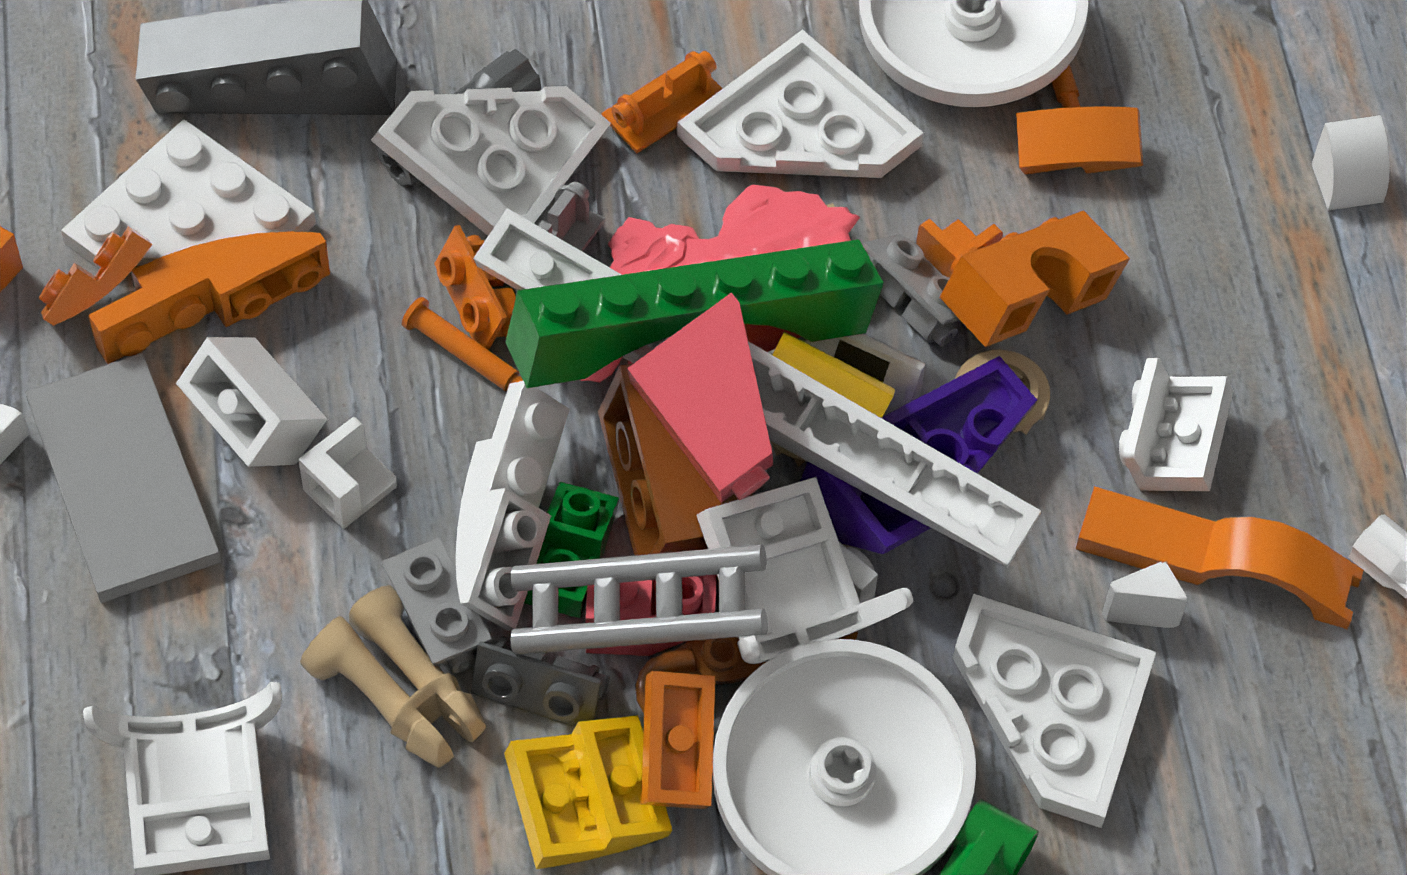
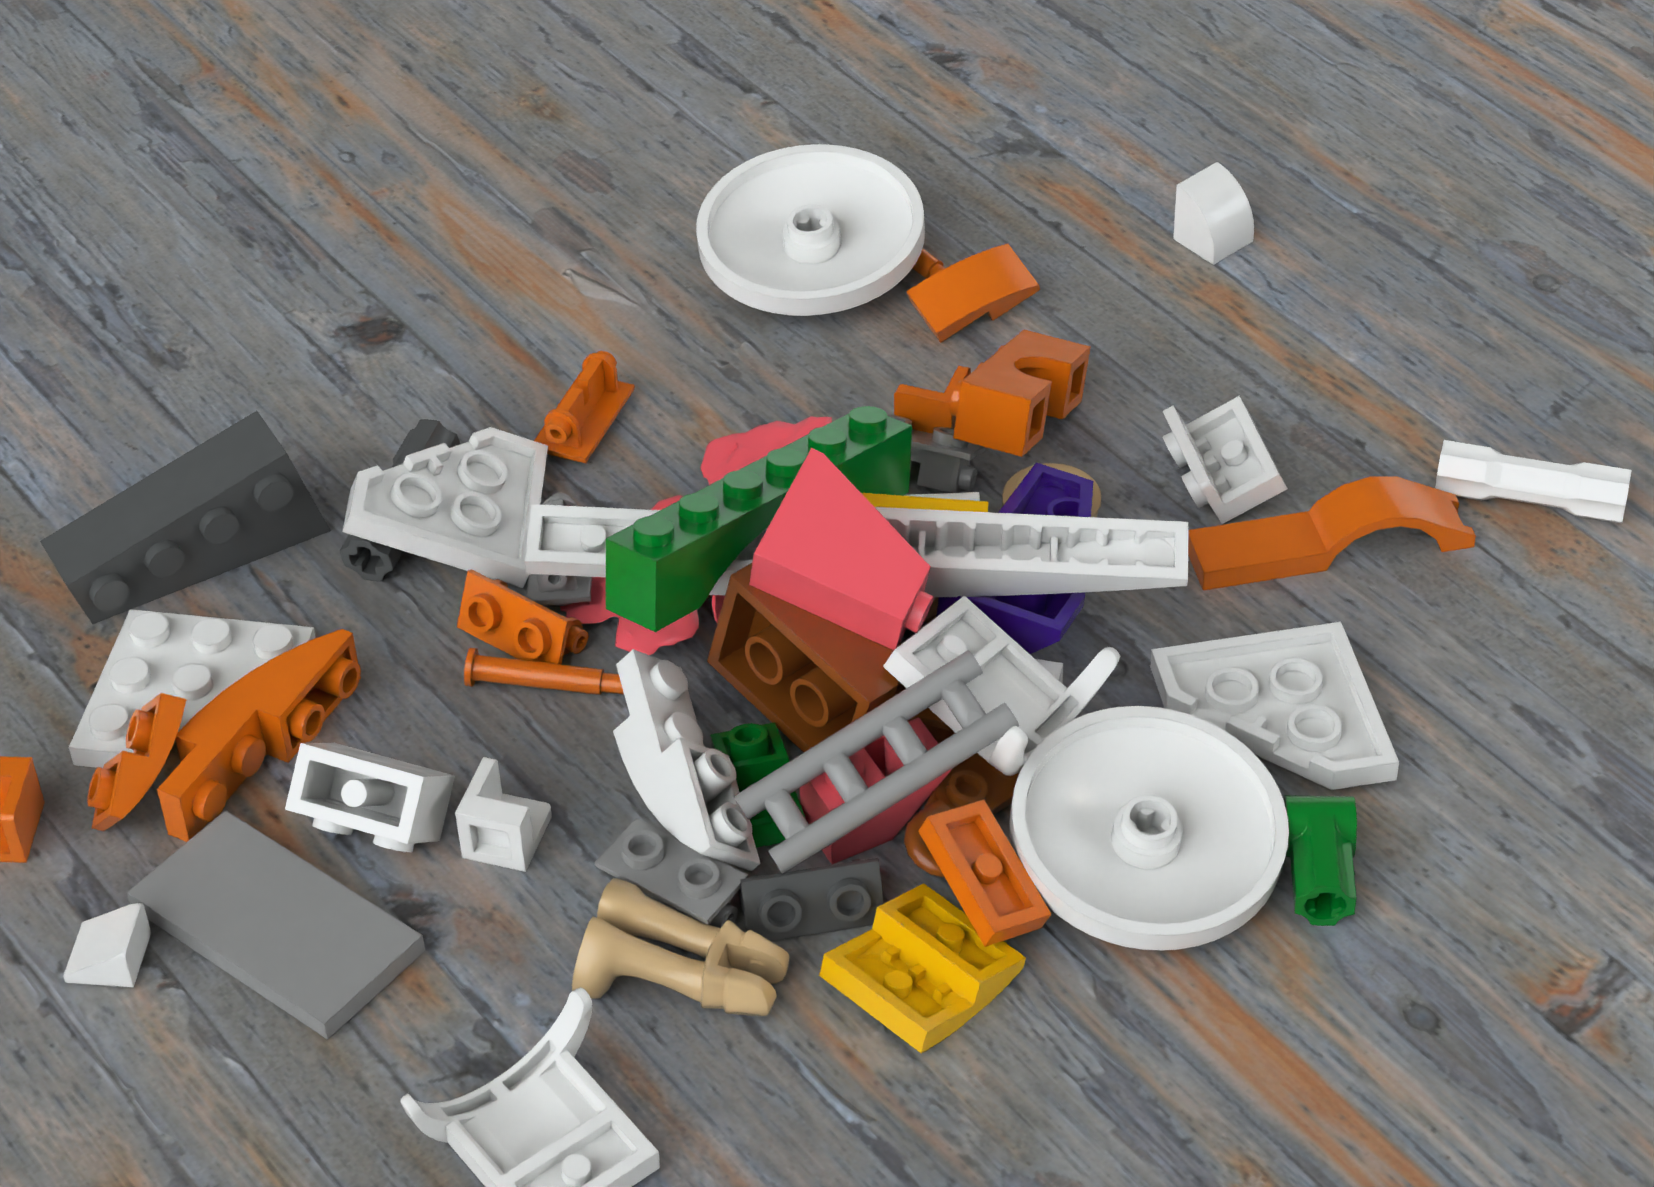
camera: 25 degrees left, 15 degrees down
(800, 117) = (715, 373): white plate -> none
(1146, 598) = (1301, 588): white slope -> none

